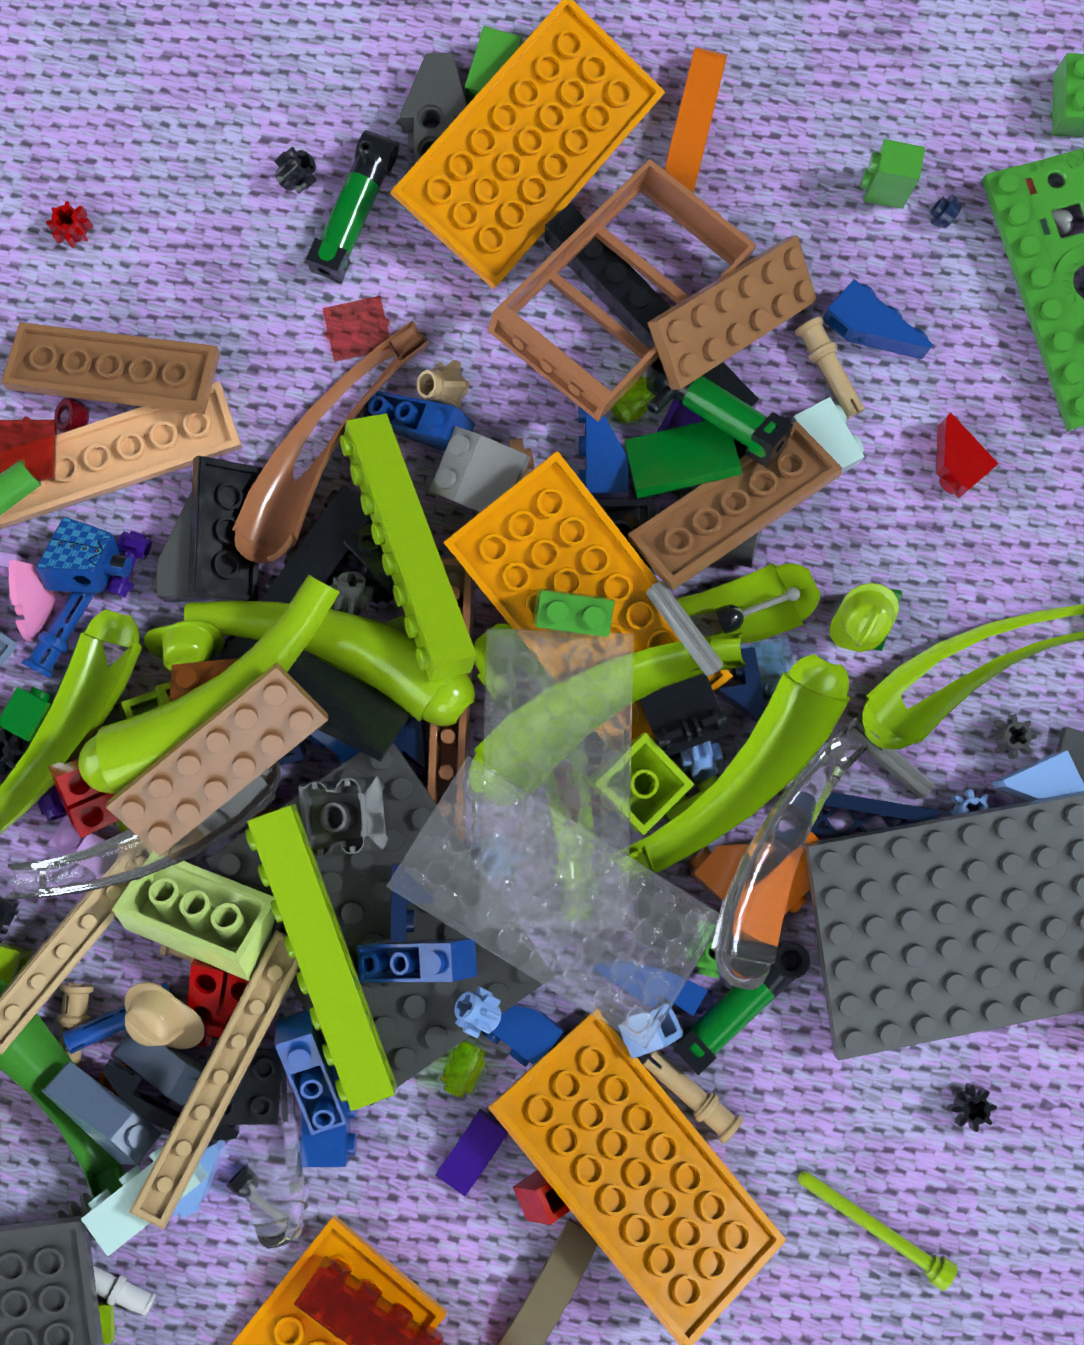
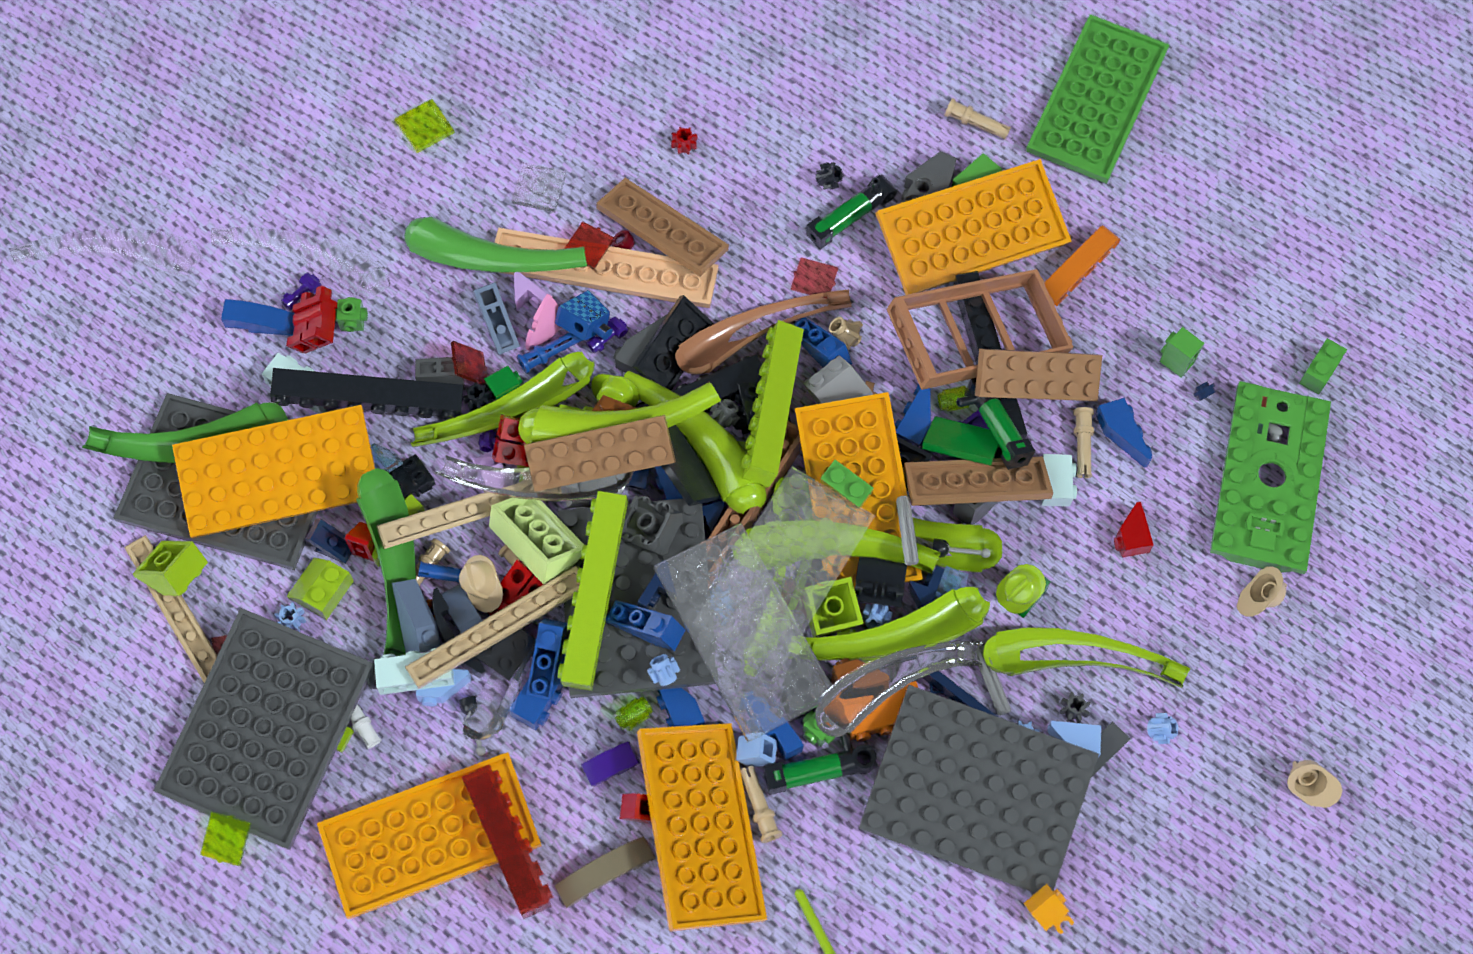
camera: 30 degrees right, 15 degrees down
(964, 1113) = (929, 900): black gear -> none

